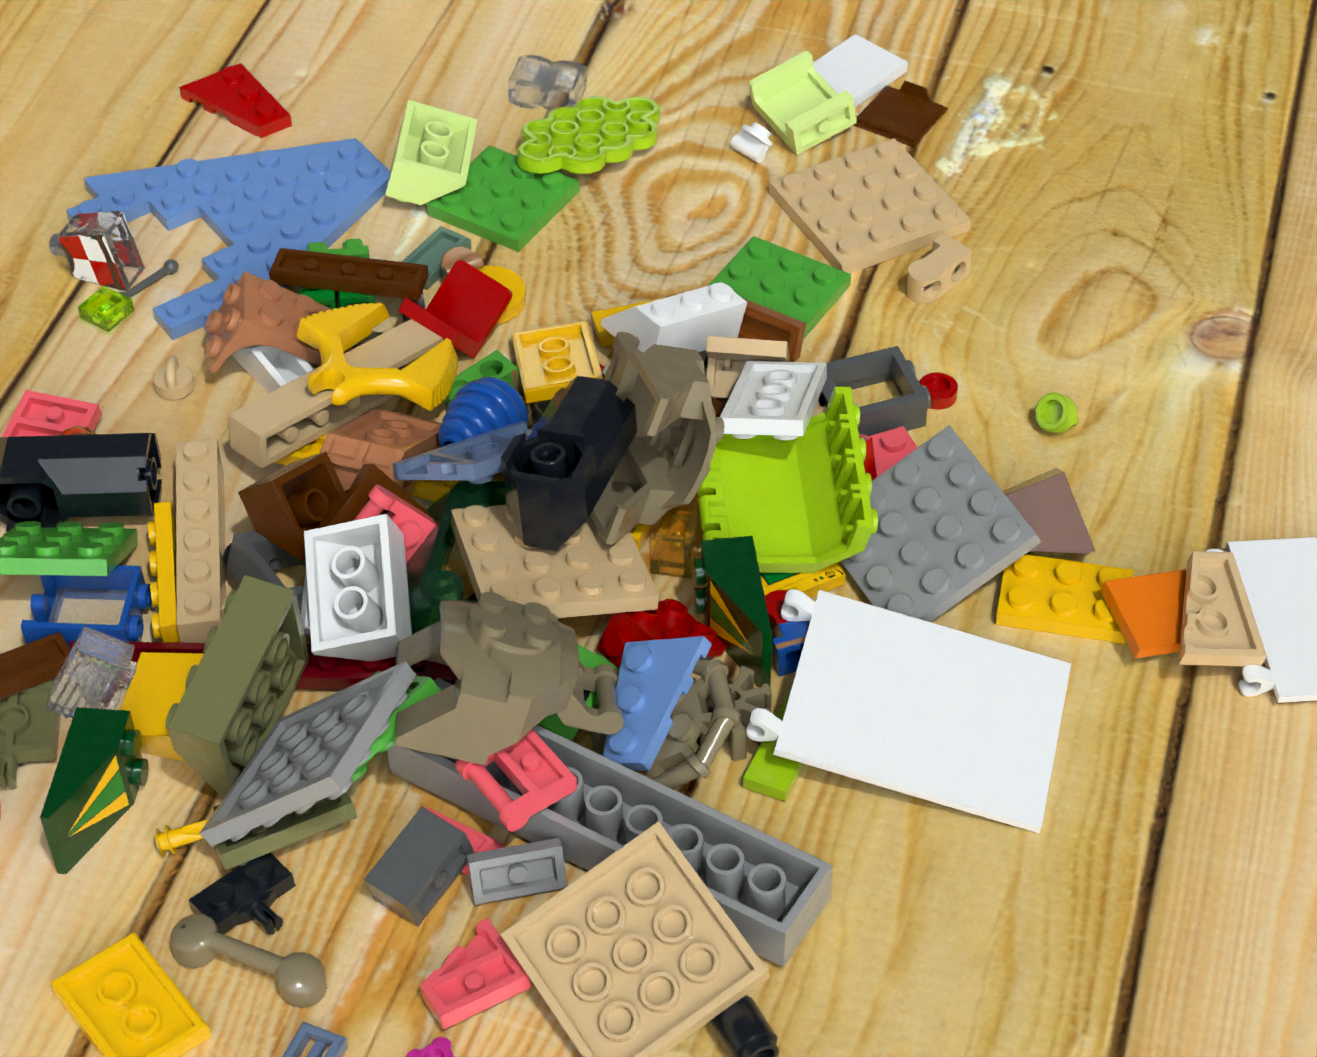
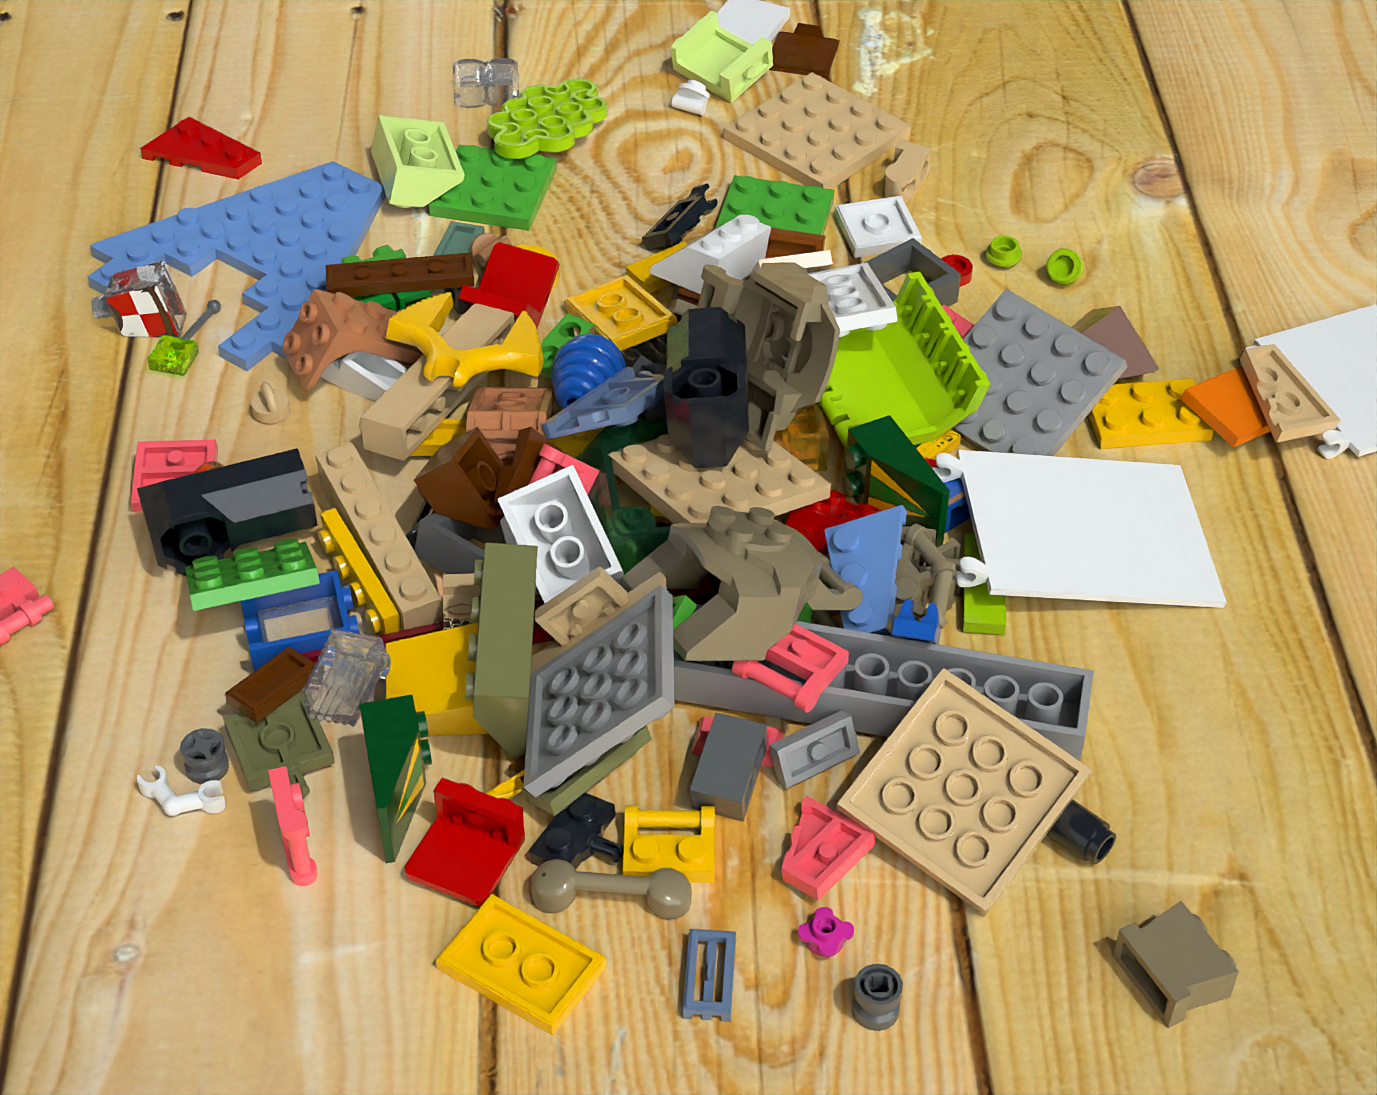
camera: 20 degrees left, 0 degrees up
(134, 876) = (467, 843): none -> red bracket
(338, 946) = (685, 853): none -> yellow plate
(345, 663) = (584, 609): none -> tan bracket
(661, 769) = (907, 627): none -> blue tile
(675, 271) = (679, 219): none -> black plate
(879, 323) = (876, 225): none -> white tile
(999, 381) = (1004, 251): none -> lime plate

